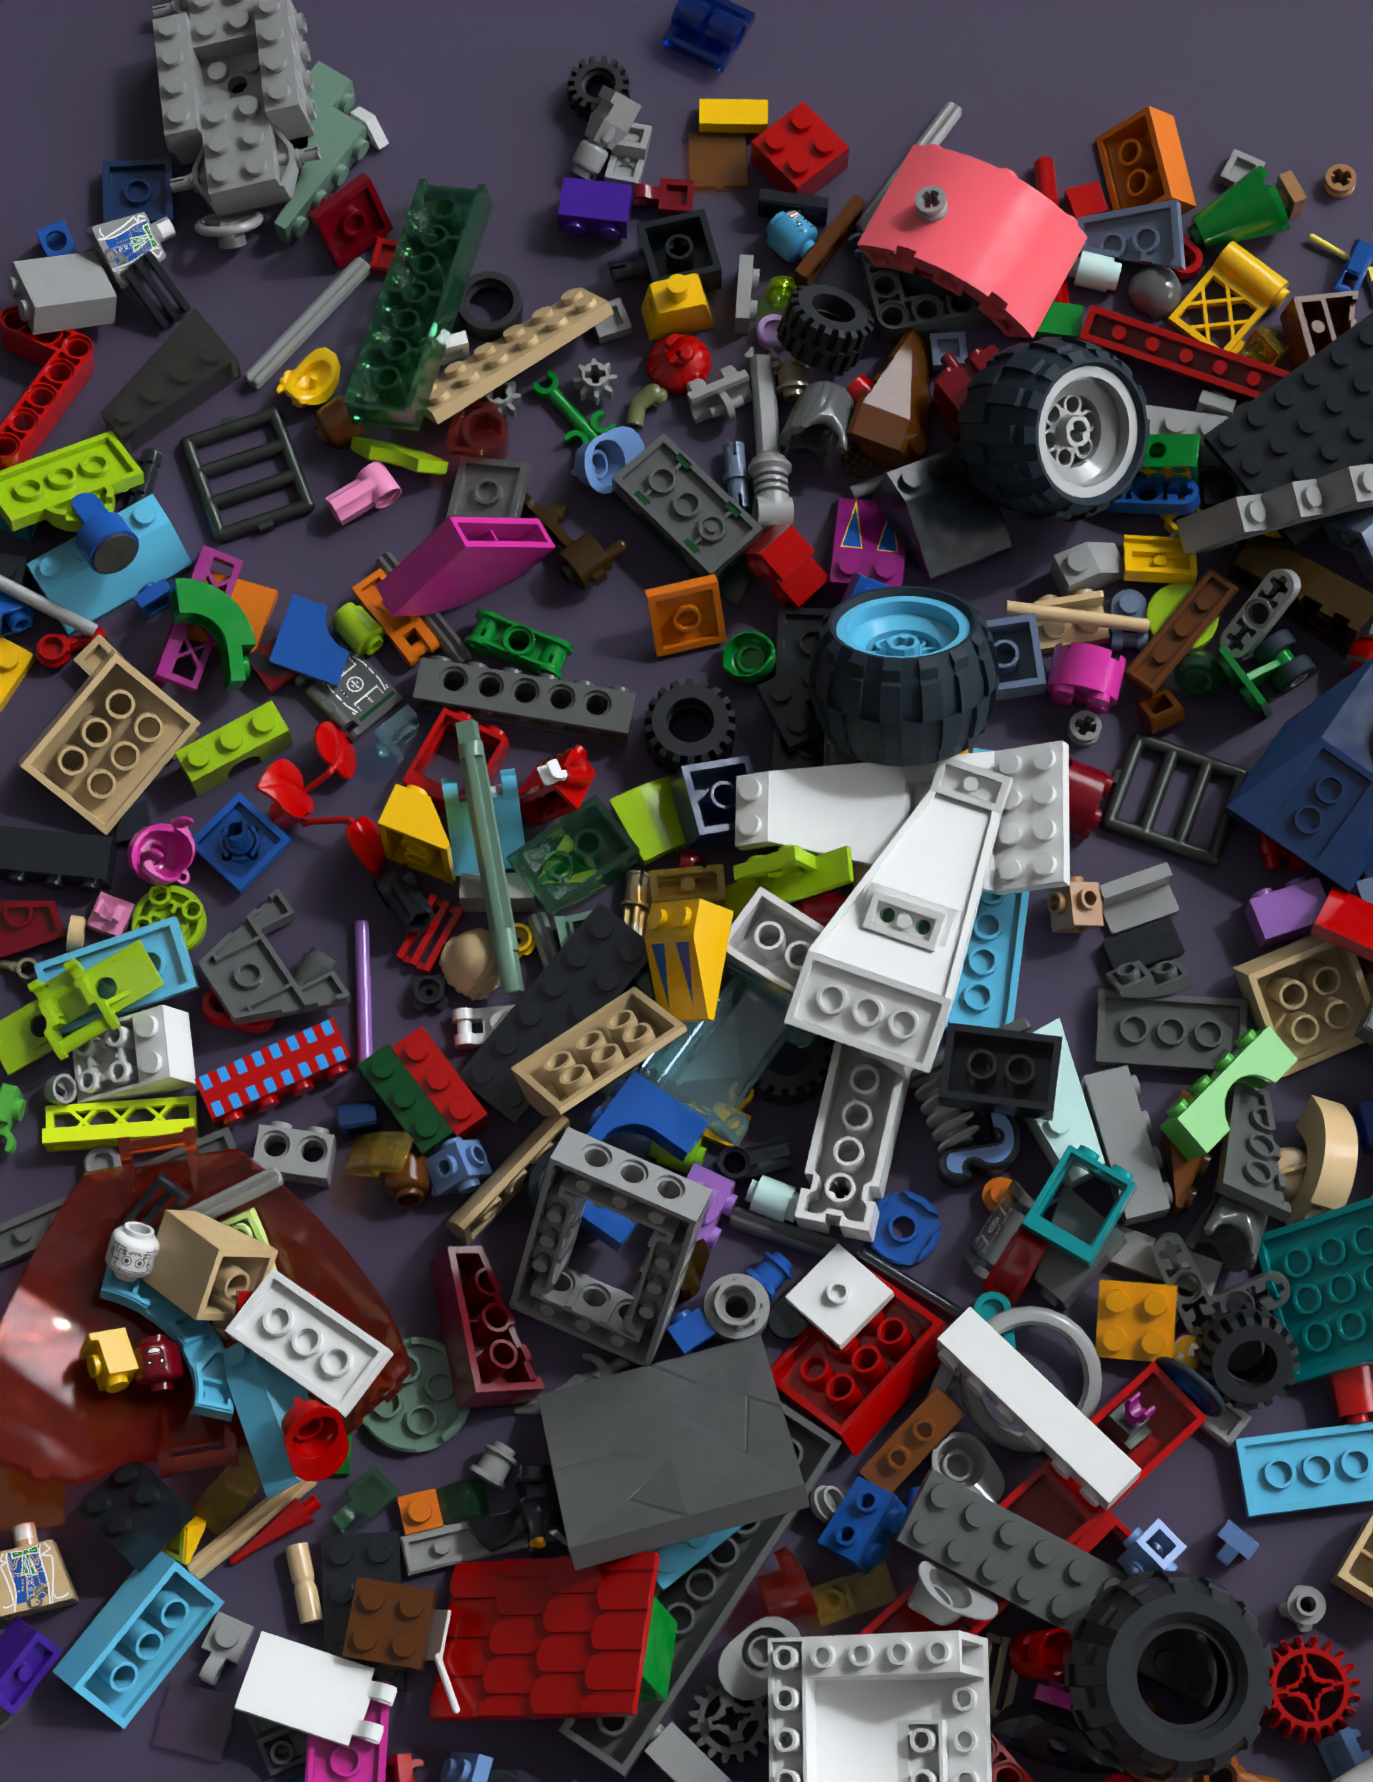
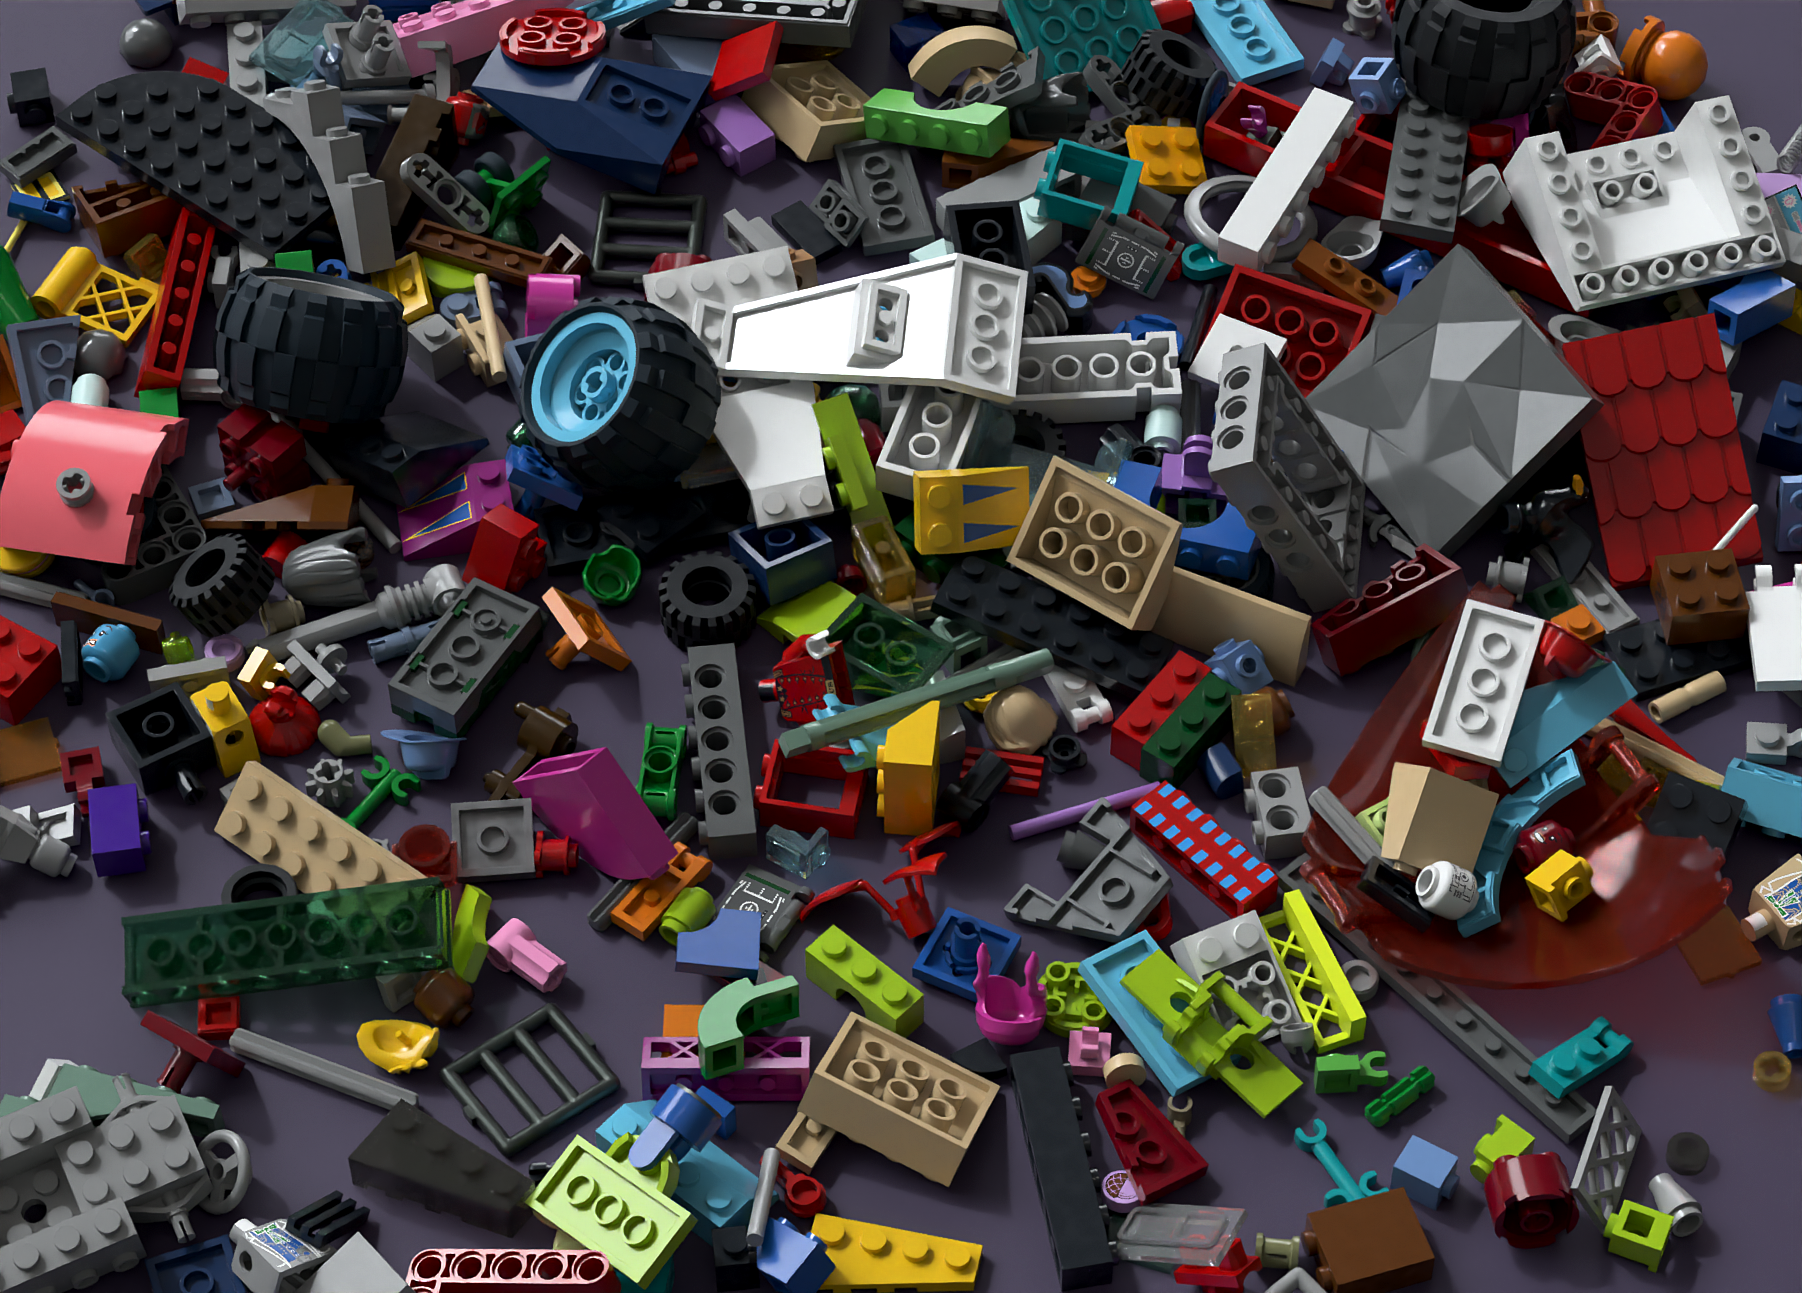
camera: 105 degrees left, 20 degrees down
(727, 348) = (261, 674): none -> yellow tile

